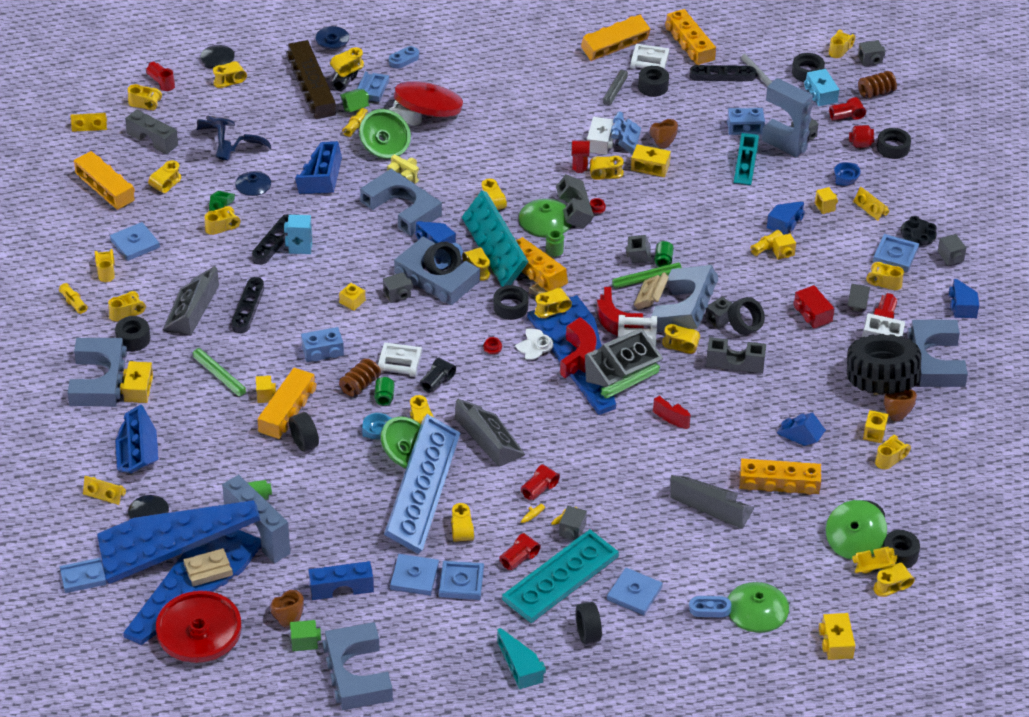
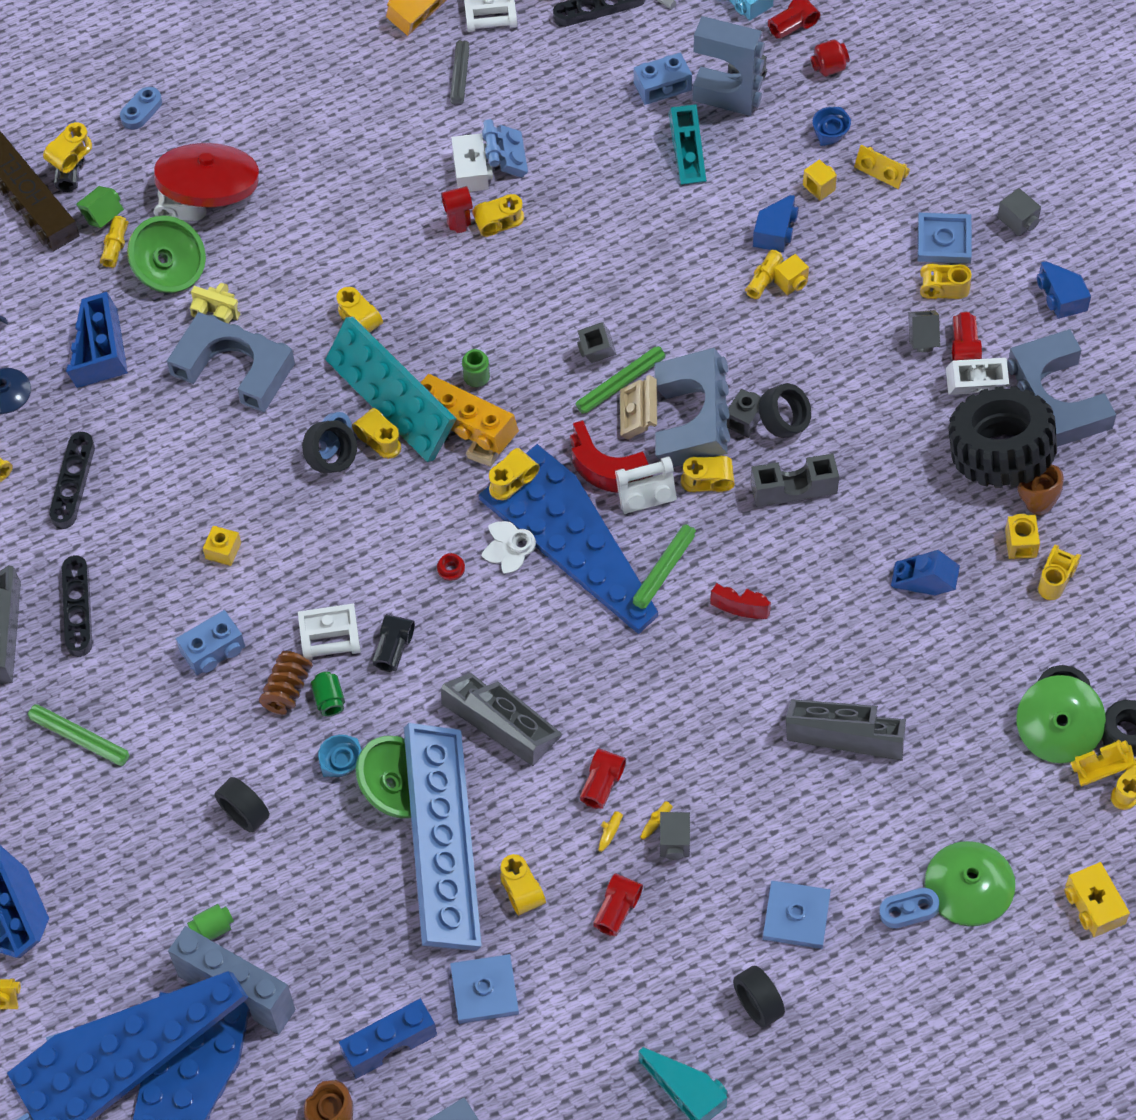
camera: 15 degrees left, 15 degrees up
(147, 506) = (65, 1005): black dish -> none
(208, 567) = (191, 1081): tan plate -> none
(264, 388) = (157, 745): yellow plate -> none
(286, 403) = (198, 762): light orange brick -> none
(299, 234) = (108, 467): medium azure brick -> none
(332, 37) = (26, 105): dark blue dish -> none
(374, 85) = (116, 171): medium blue plate -> none
(397, 287) = (281, 511): dark grey brick -> none
(419, 408) = (395, 718): yellow piece -> none
(435, 232) = (301, 404): blue slope -> none
(446, 287) = (350, 489): sand blue arch -> none
(461, 580) = (554, 977): medium blue plate -> none
(510, 292) = (445, 467): black tyre -> none
(542, 216) = (443, 334): bright green dish -> none
(560, 576) = (687, 925): teal plate -> none
(578, 210) = (469, 272): dark grey arch -> none
(584, 339) = (581, 523): red arch -> none
(597, 206) = (505, 278): red plate -> none
(620, 358) = (644, 541): dark grey slope -> none
(650, 160) = (556, 184): yellow brick -> none
(653, 81) = (510, 59): black tyre -> none
(663, 253) = (631, 338): green brick -> none
(664, 132) = (557, 131): dark orange hair -> none
(784, 477) = (925, 661): light orange brick -> none
(813, 306) = (869, 365): red brick -> none
(890, 151) = (876, 70): black tyre -> none
(918, 231) = (961, 192): black dish -> none

